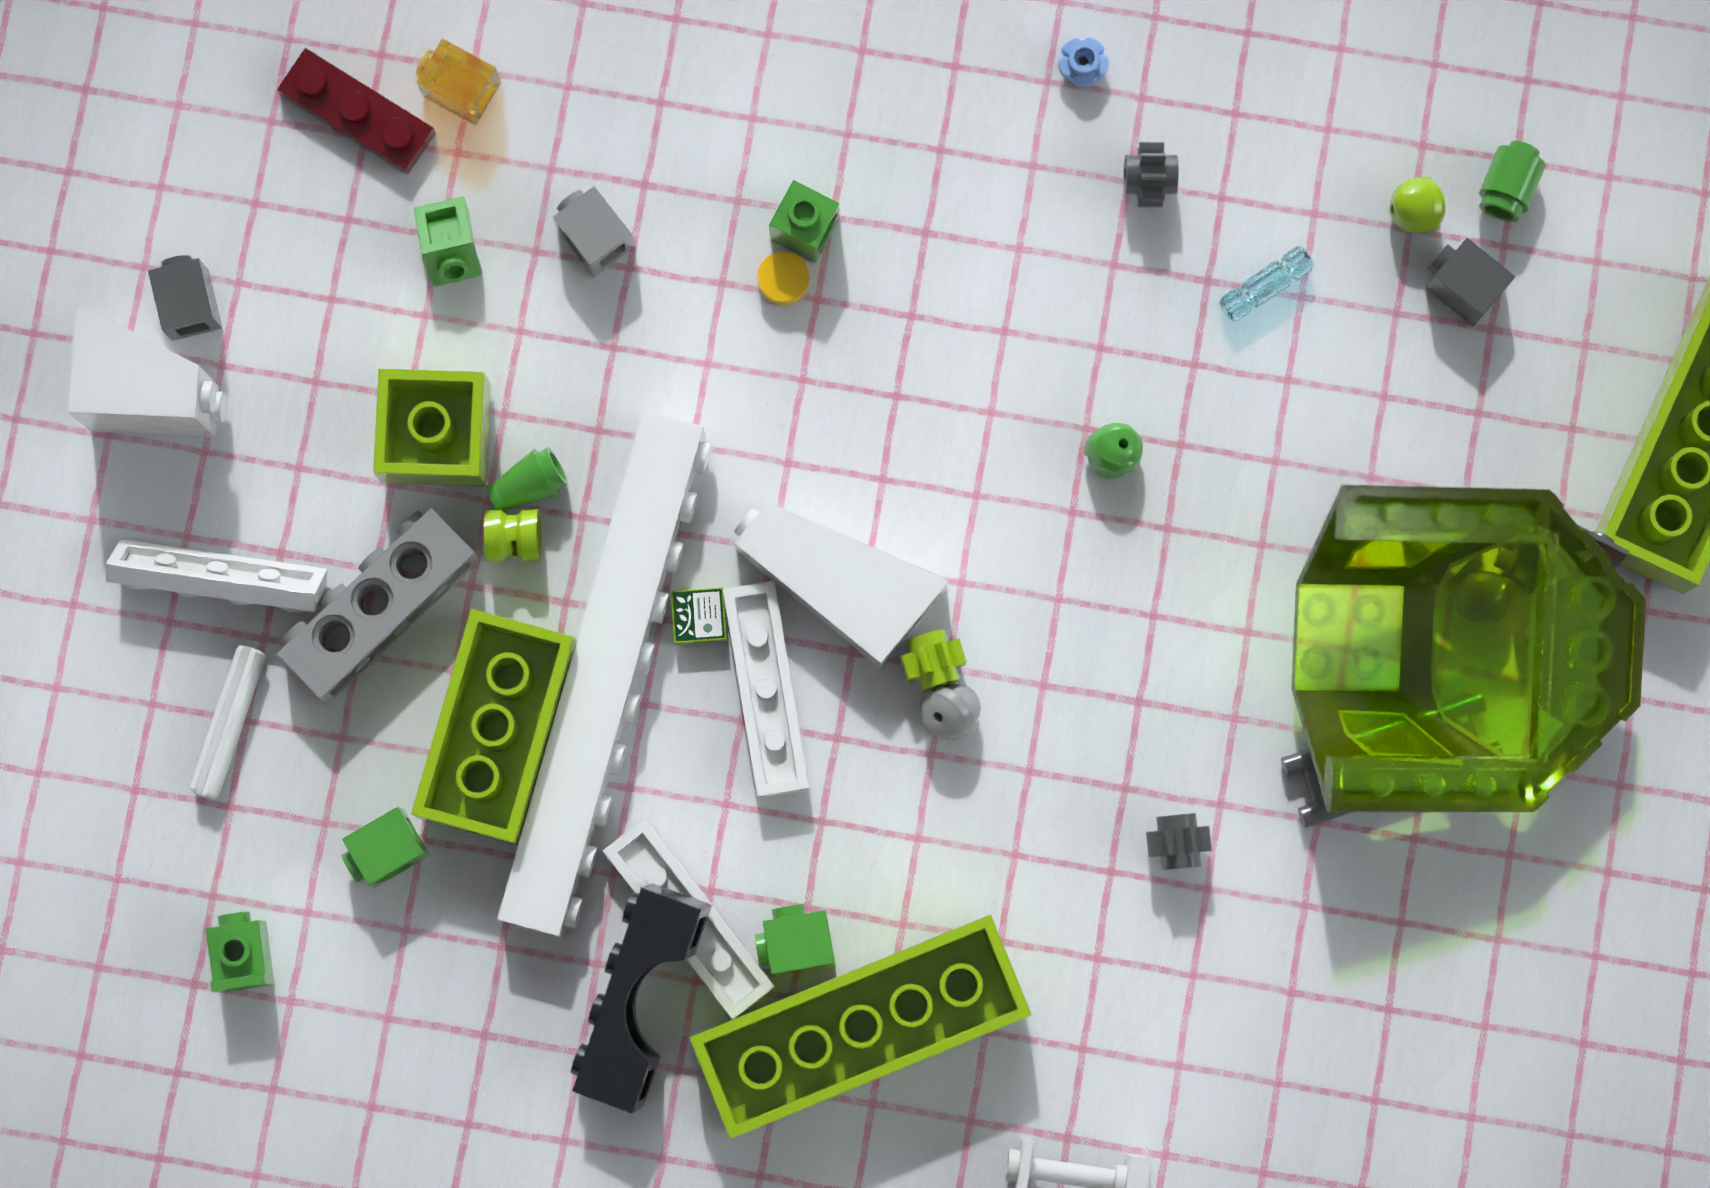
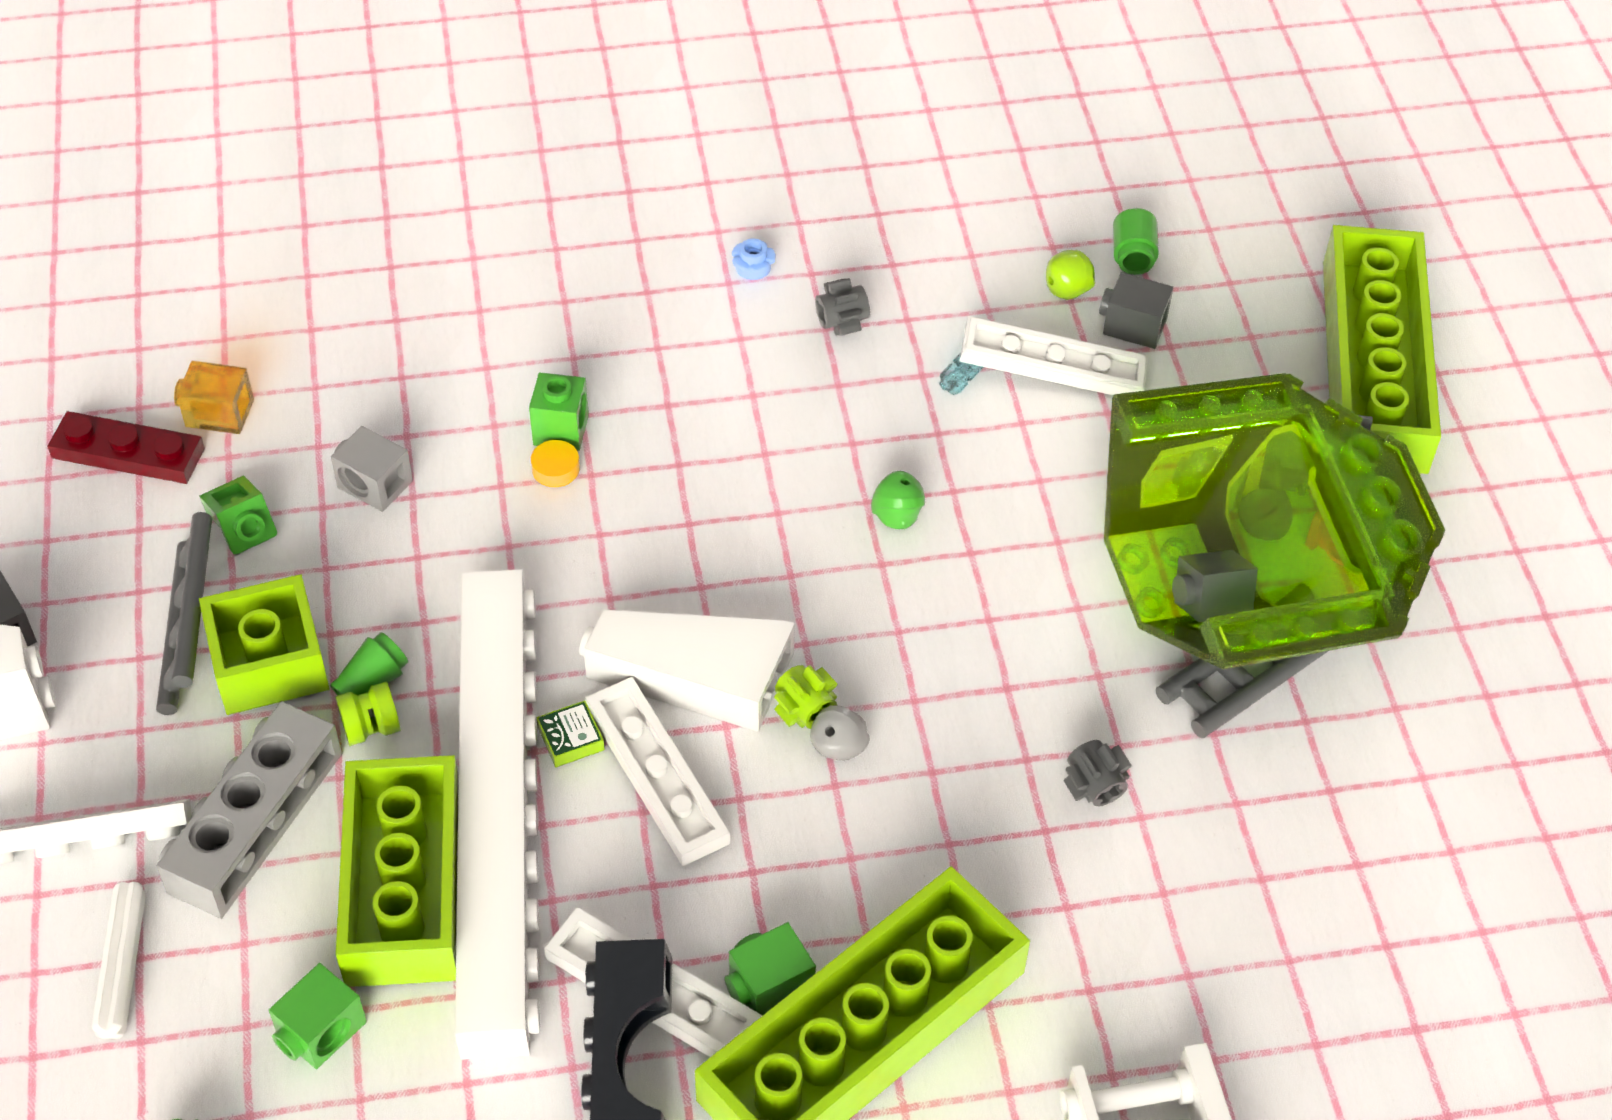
camera: 20 degrees left, 30 degrees down
(366, 357) = (184, 614): none -> dark grey bar
(1351, 318) = (1052, 357): none -> white tile
(1379, 683) = (1214, 584): none -> brick

